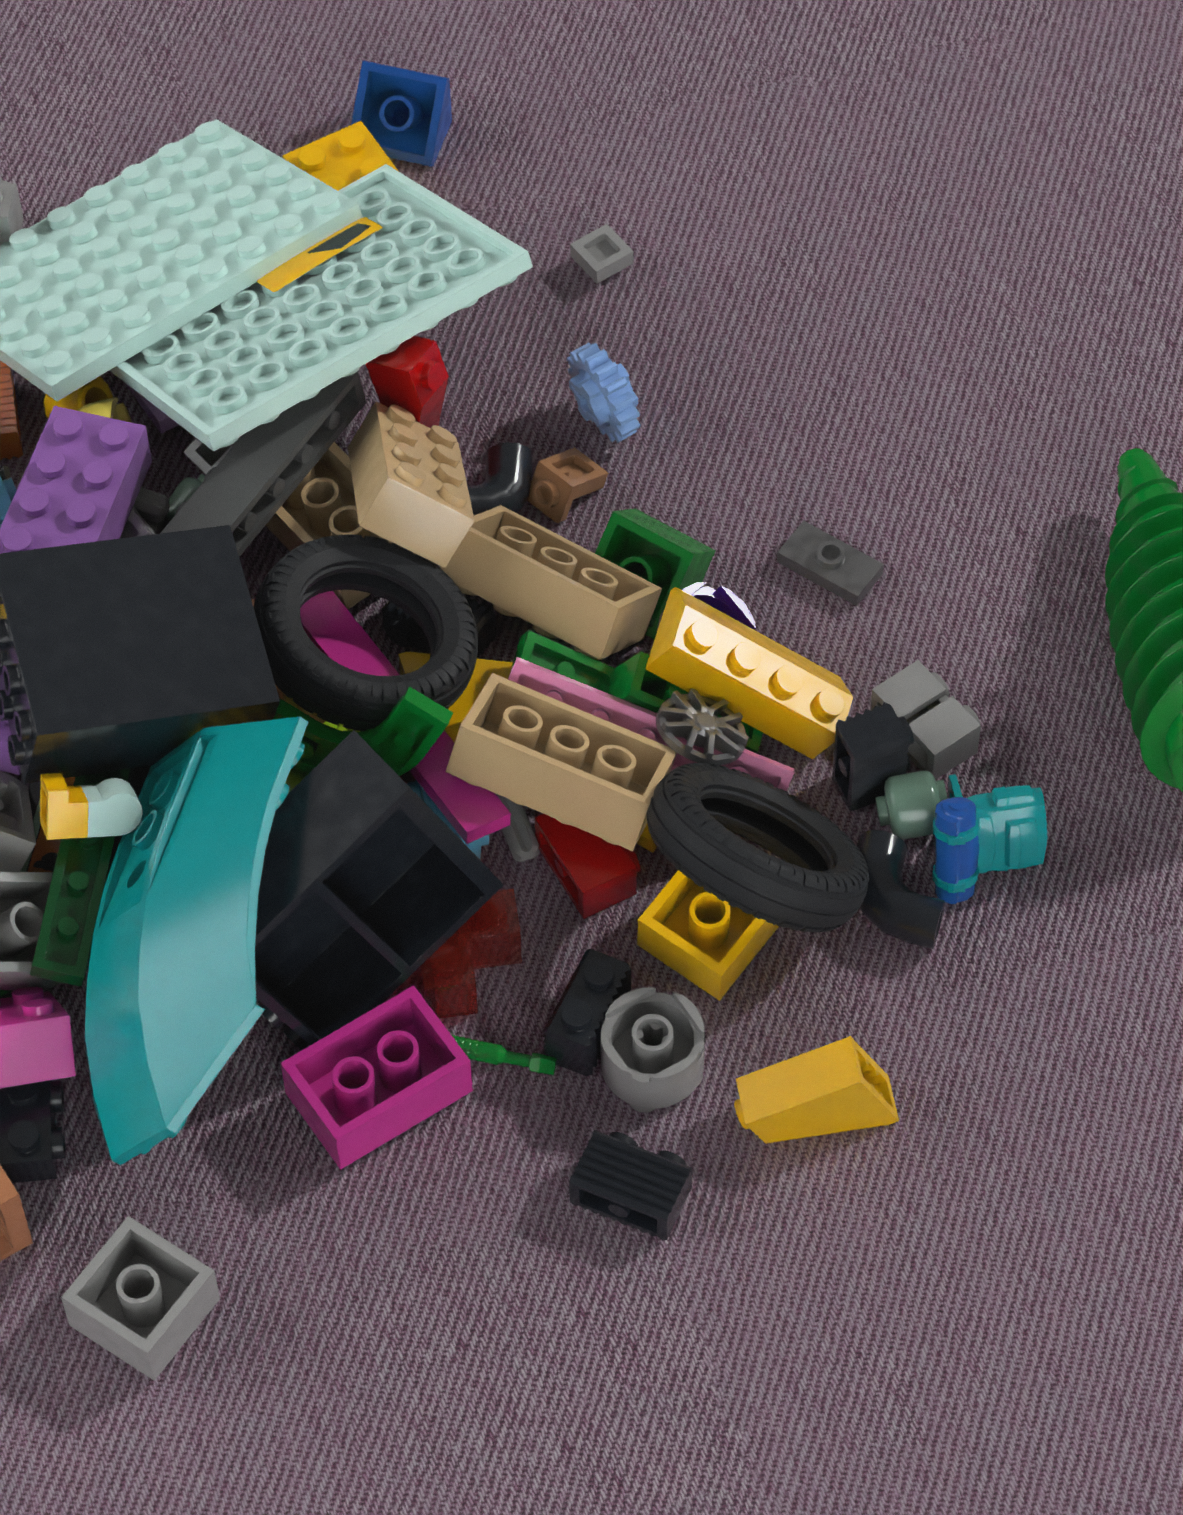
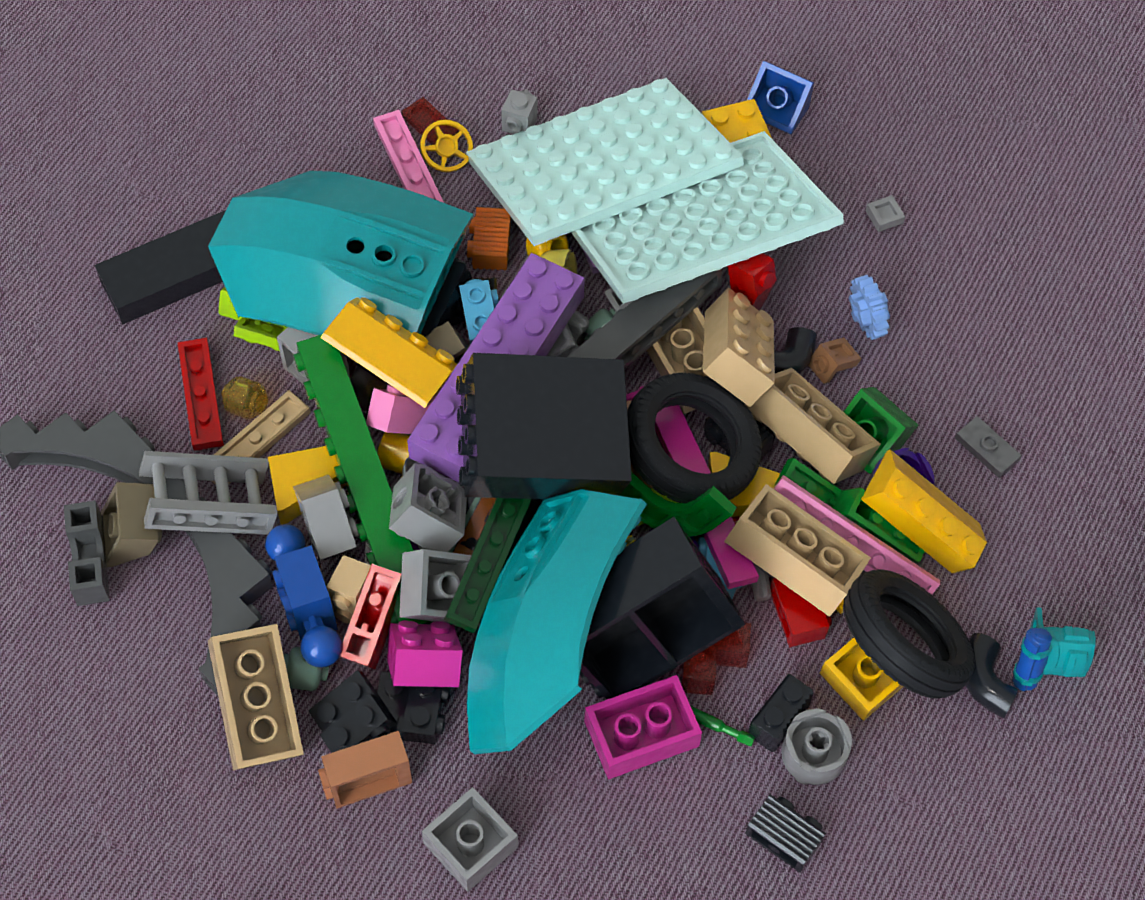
camera: 10 degrees right, 5 degrees up
(87, 809) = (499, 523): leg -> none
(318, 254) = (712, 183): yellow sticker -> none
(697, 721) = (888, 545): flat silver wheel -> none
(816, 1094) = (912, 801): yellow slope -> none
(868, 753) = (990, 584): black brick -> none
(910, 803) = (1009, 620): sand green head -> none
(941, 726) = (1028, 566): light grey piece -> none

